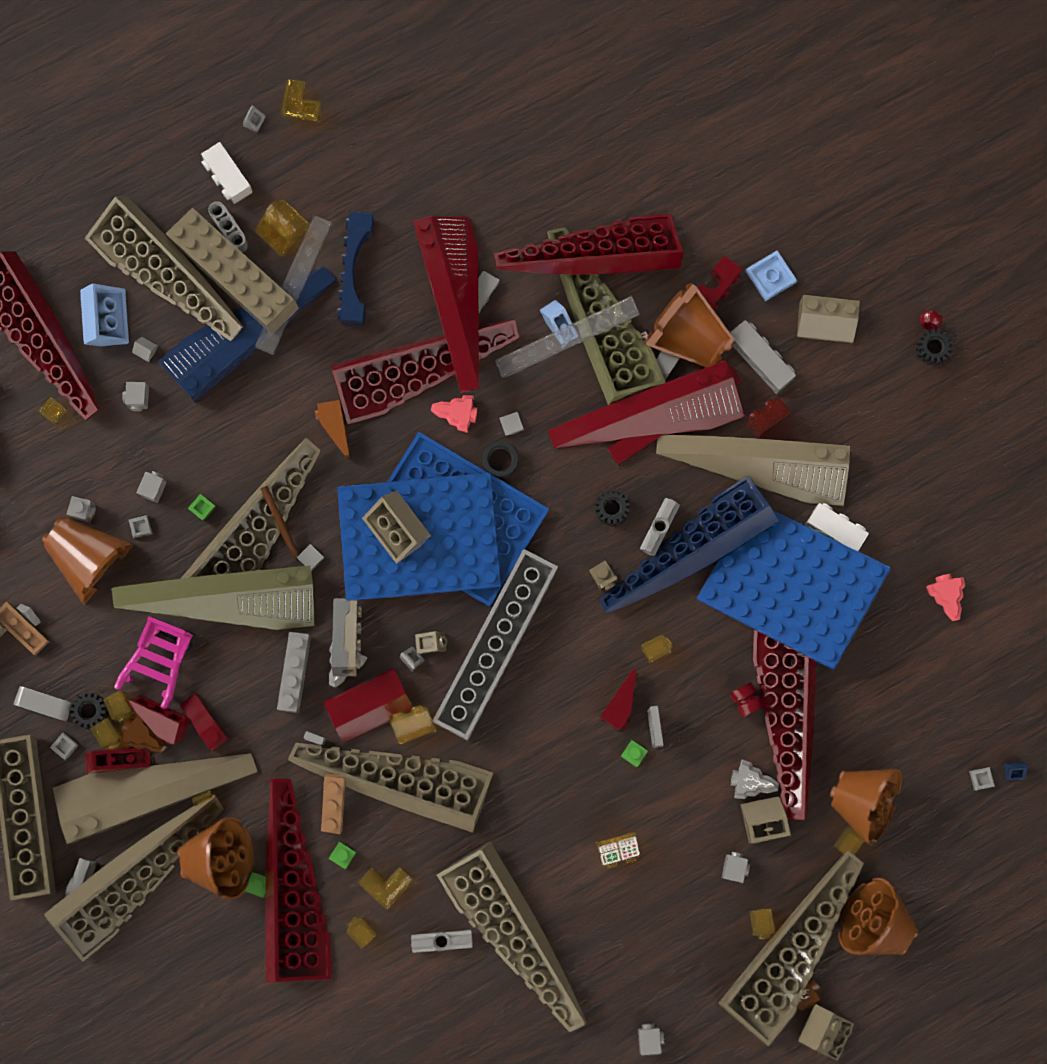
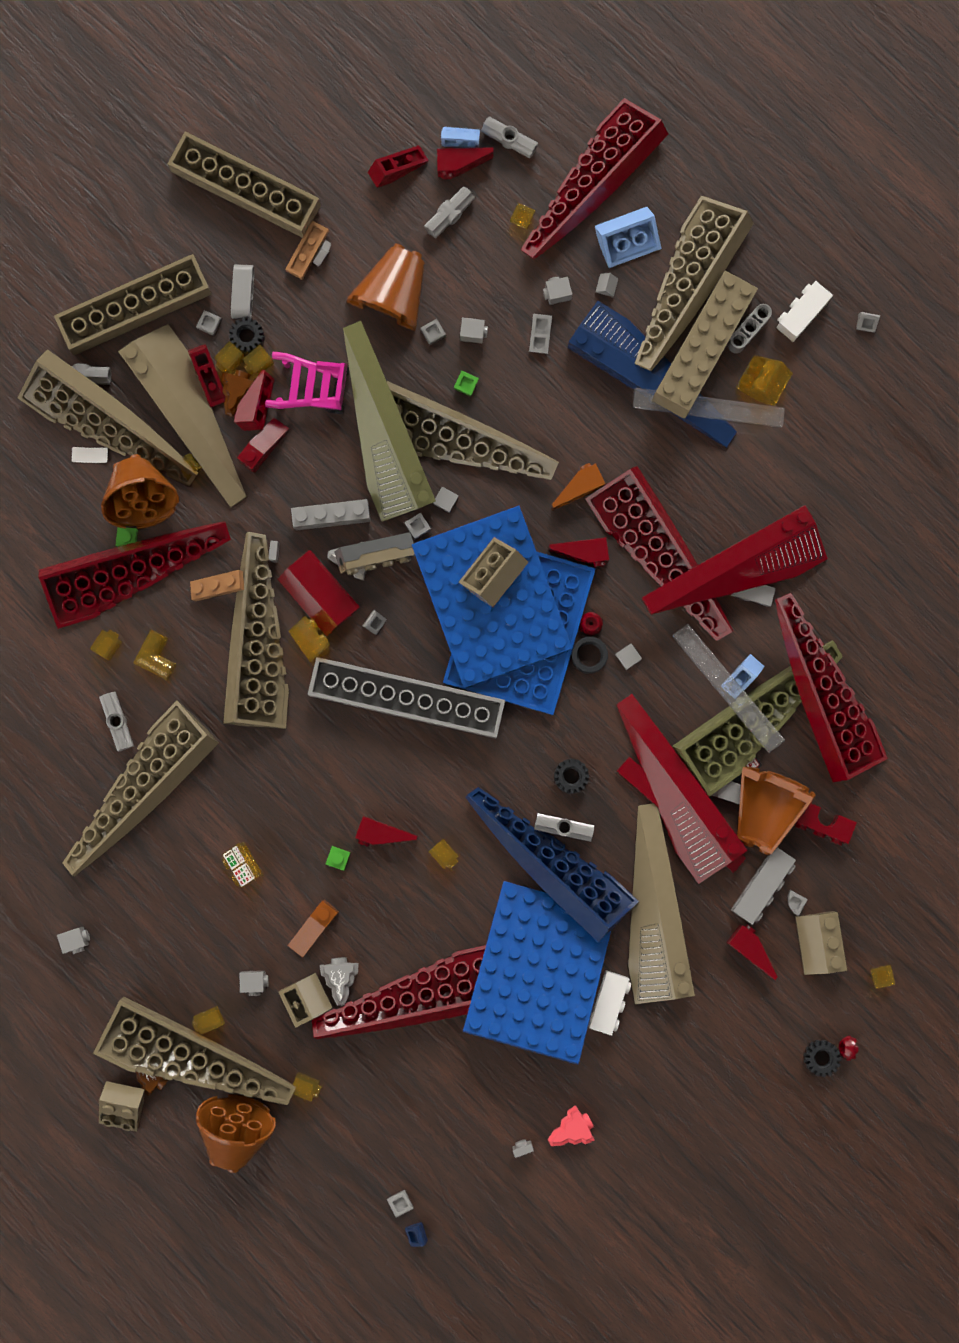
camera: 75 degrees right, 5 degrees up
(26, 479) = (449, 212): none -> light grey piece
(81, 509) = (433, 271): light grey brick -> none
(162, 902) = (89, 455): none -> white sticker
(173, 424) = (540, 333): none -> light grey slope
(280, 522) = (471, 460): reddish brown bar -> none
(294, 104) = (892, 357): clear yellow brick -> none
(329, 591) = (417, 526): none -> light grey plate
(342, 855) = (173, 607): bright green plate -> none
(359, 229) = (784, 456): dark blue arch -> none
(399, 437) = (585, 551): none -> dark red slope
(431, 642) = (393, 636): dark tan bracket -> none
(458, 412) = (625, 601): coral rock -> none
(474, 446) = (591, 629): none -> dark red plate
(603, 576) = (501, 785): dark tan bracket -> none
(655, 727) = (366, 871): light grey tile -> none
(697, 795) = (313, 928): none -> dark orange slope
(747, 701) = (416, 954): dark red wheel -> none
(763, 421) = (702, 907): clear red brick -> none
(771, 276) = (851, 875): light blue tile -> none
(783, 332) = (795, 902): none -> light grey tile
(816, 383) = (750, 947): none -> dark red slope
(866, 800) = (347, 1094): dark orange cone -> none
(872, 272) = (882, 976): none -> clear yellow plate
(955, 646) = (522, 1147): none -> light grey plate

